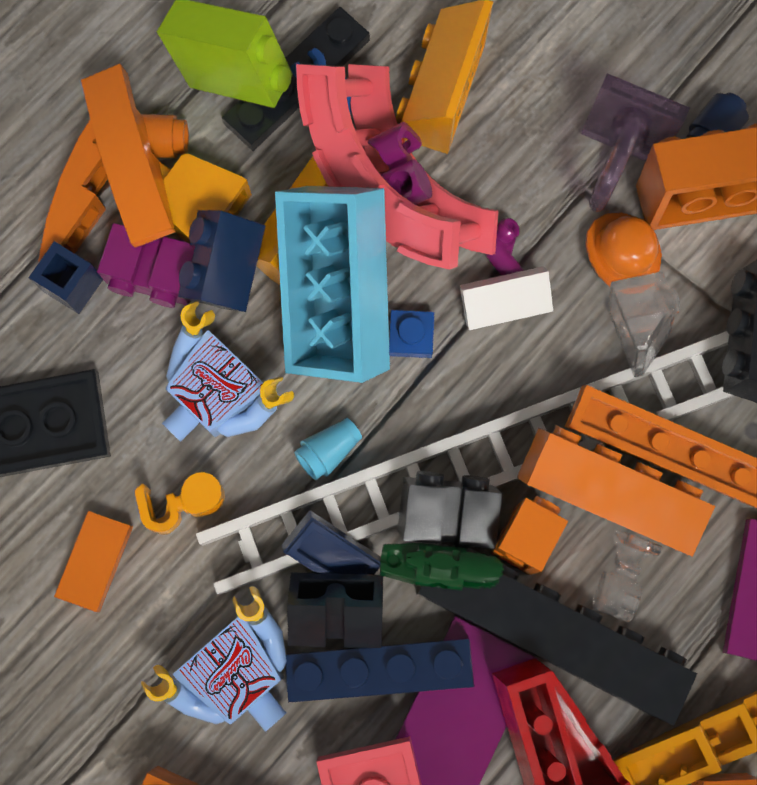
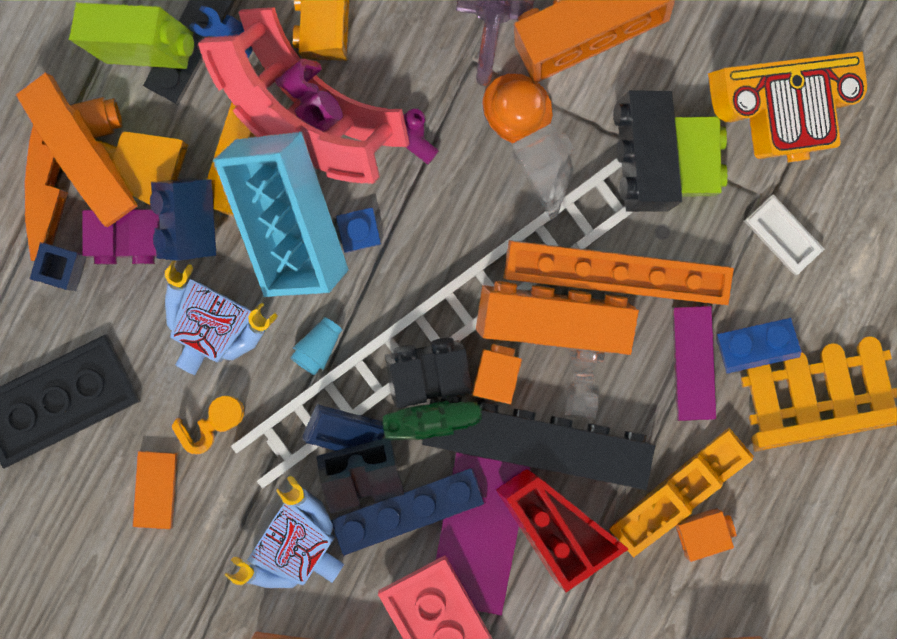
camera: 15 degrees left, 10 degrees up
(506, 298) = (429, 178): white tile -> none

